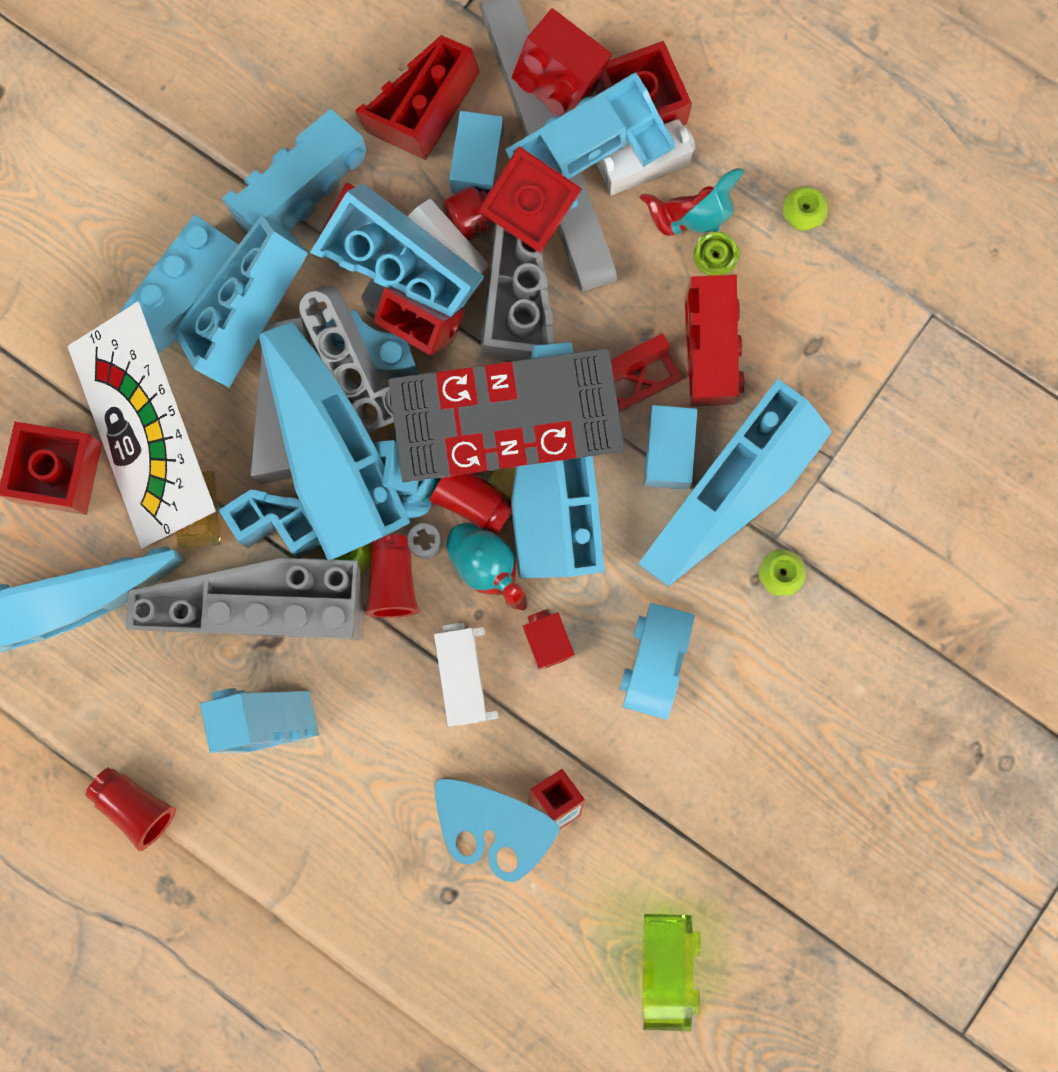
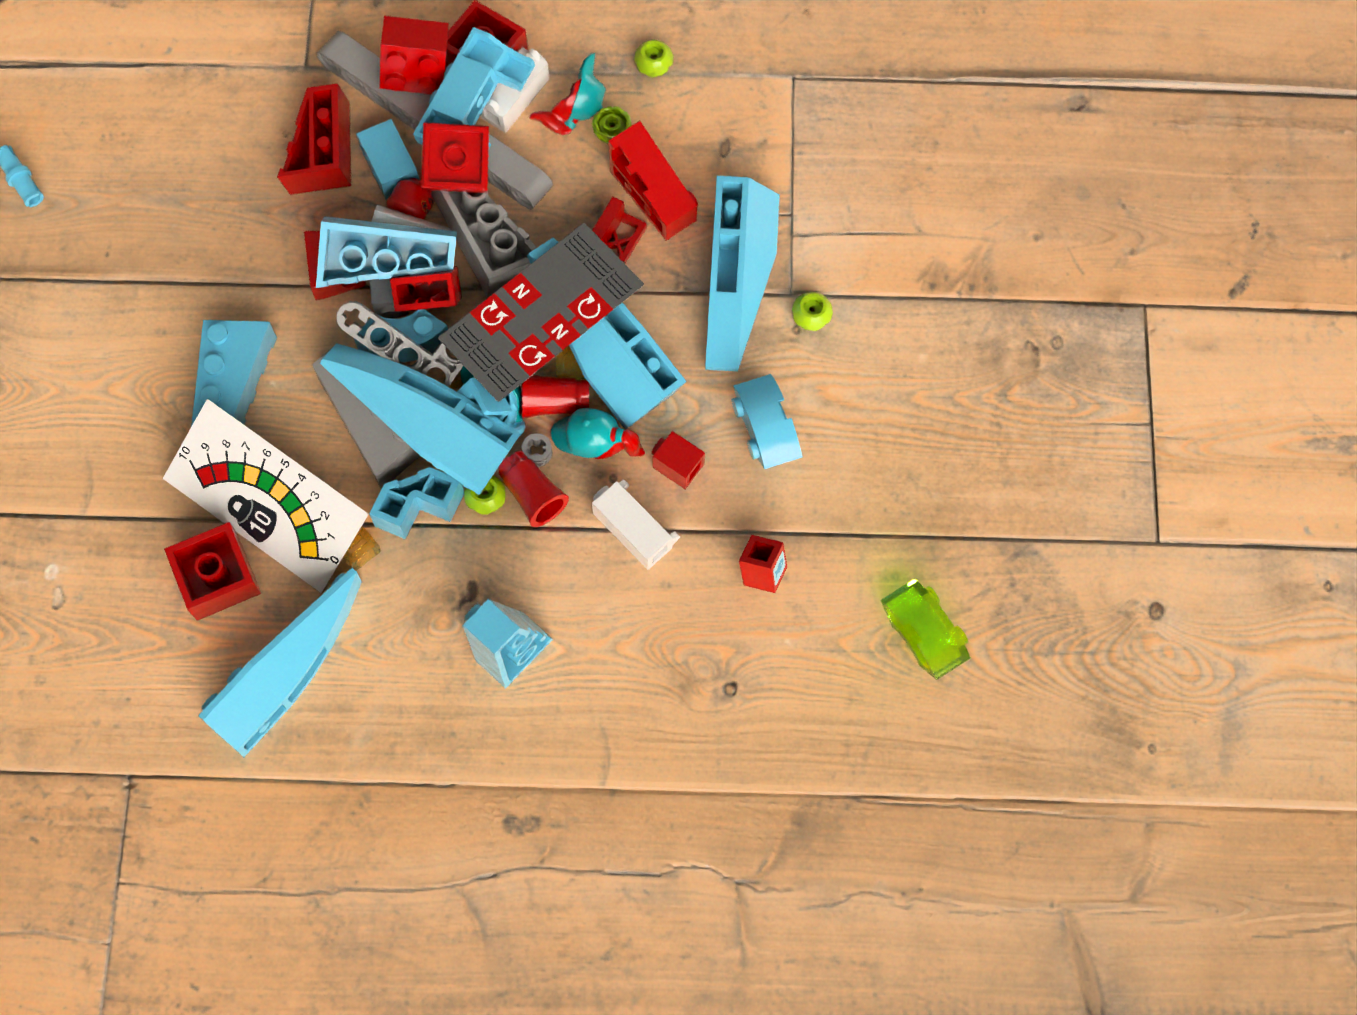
camera: 40 degrees left, 10 degrees down
(130, 807) = (446, 777): red plant -> none
(240, 301) = (283, 356): medium azure wedge -> none
(257, 600) = (442, 566): light grey wedge -> none
(299, 175) = (263, 256): medium azure wedge -> none
(514, 824) = (739, 595): medium azure piece -> none
(670, 447) = (672, 273): medium azure panel -> none

